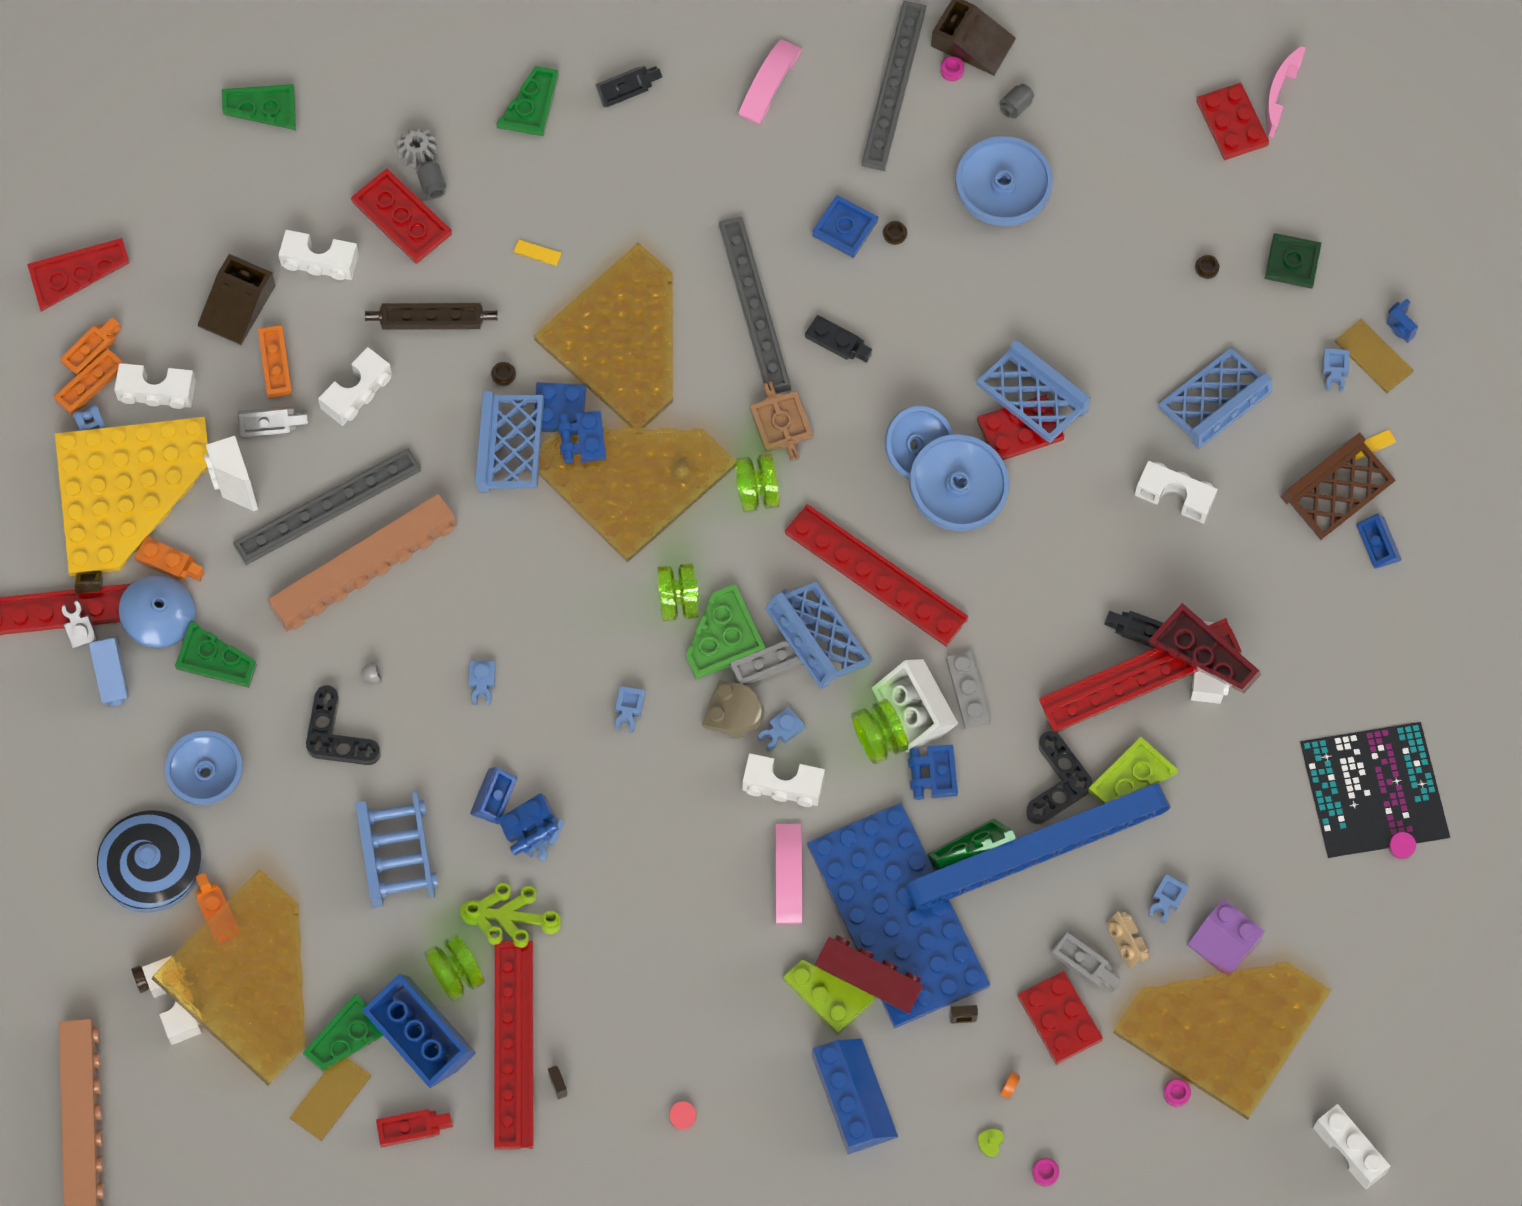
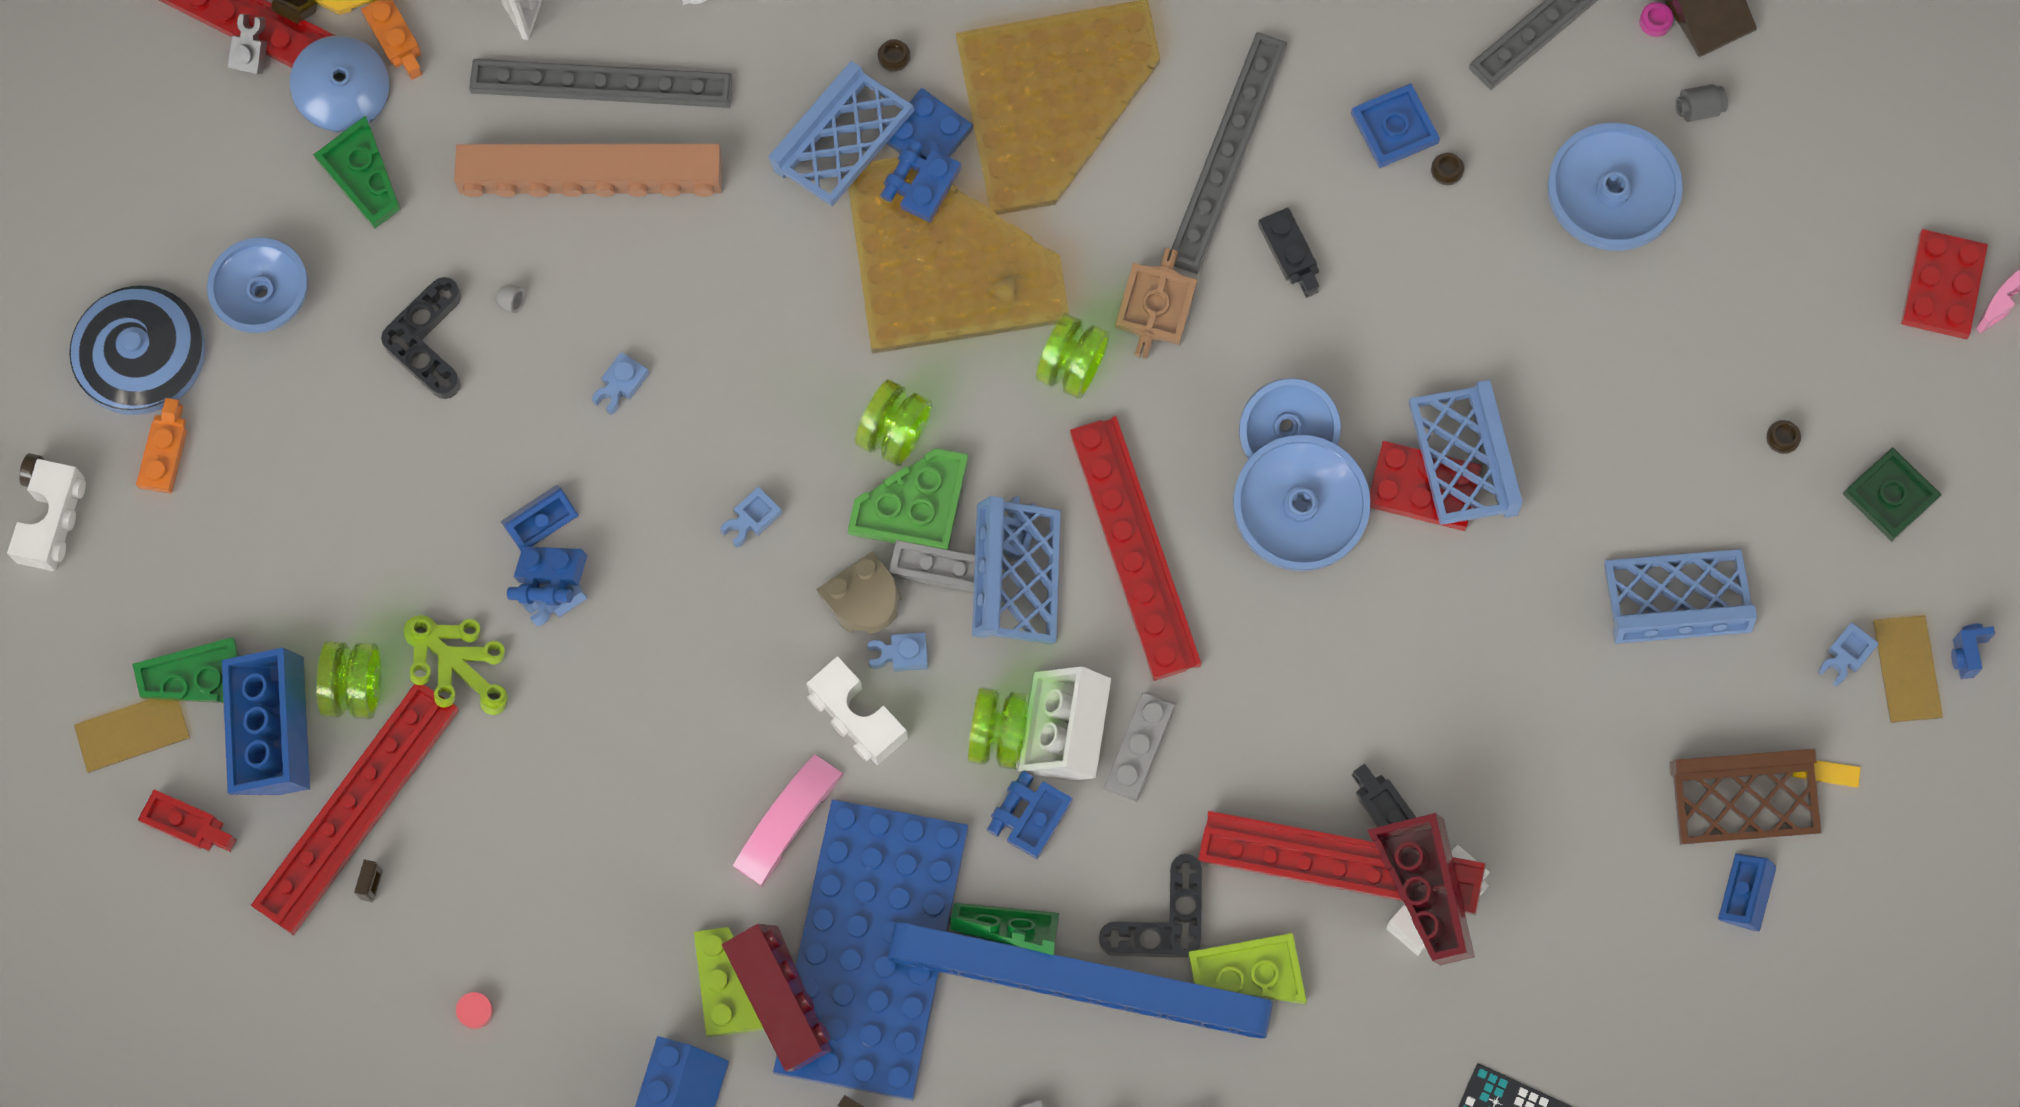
camera: 40 degrees right, 5 degrees up
(109, 670) = (243, 114): medium blue slope -> none
(245, 977) = (133, 541): clear yellow plate -> none
(375, 865) = (371, 481): medium blue fence -> none
(1159, 480) = (1536, 650): white arch -> none

